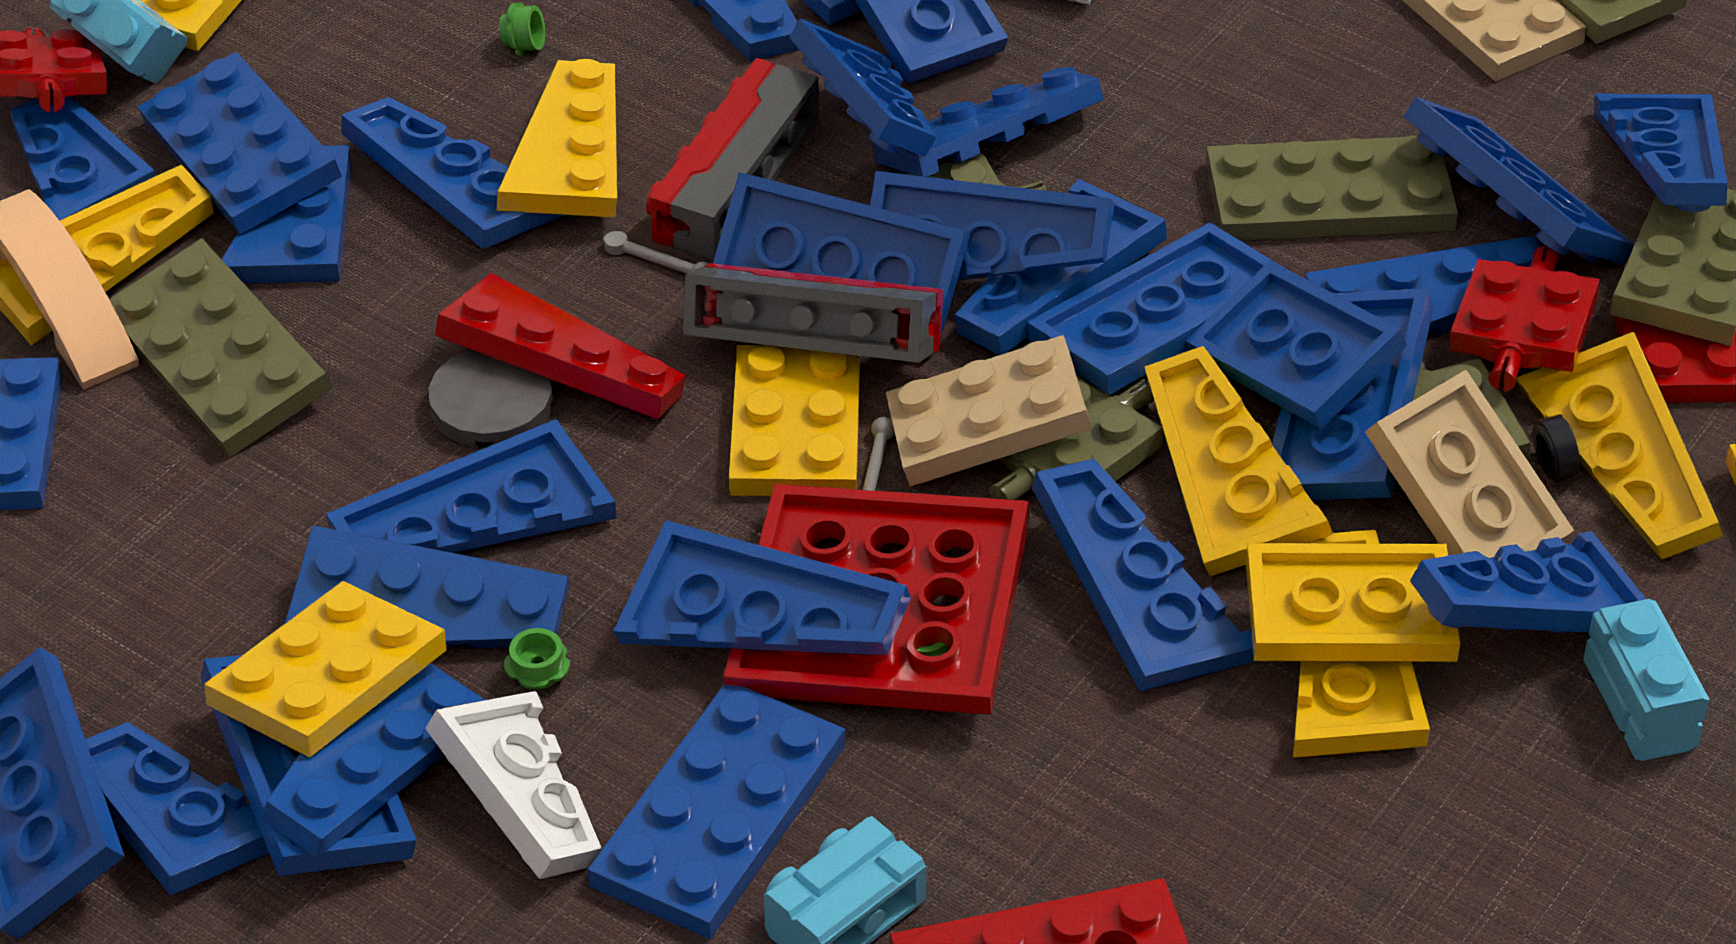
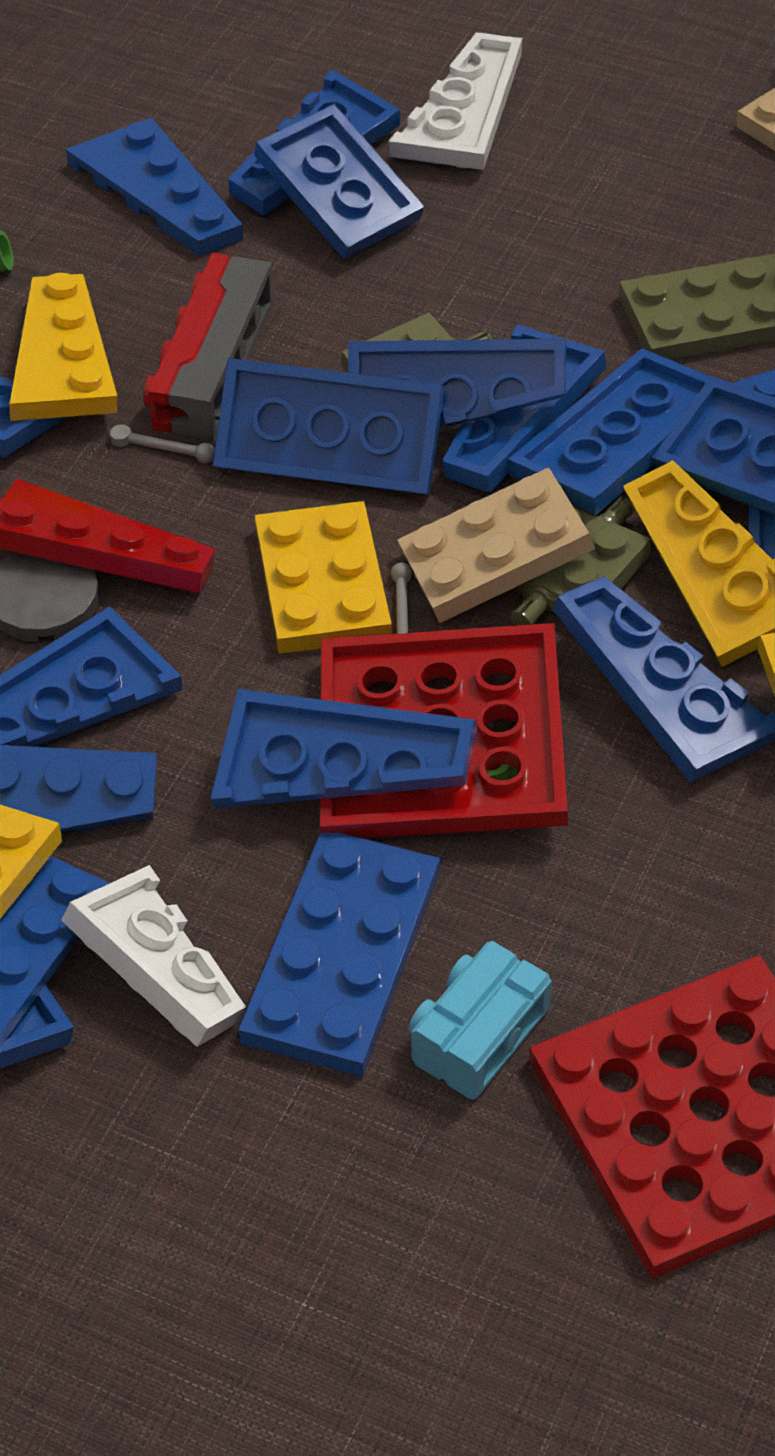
camera: 10 degrees left, 5 degrees up
(537, 659) = (141, 823): bright green plate -> none
(813, 312) = (319, 476): dark grey piece -> none
(867, 86) = (308, 260): blue wing -> none
(997, 119) = (408, 290): blue wing -> none

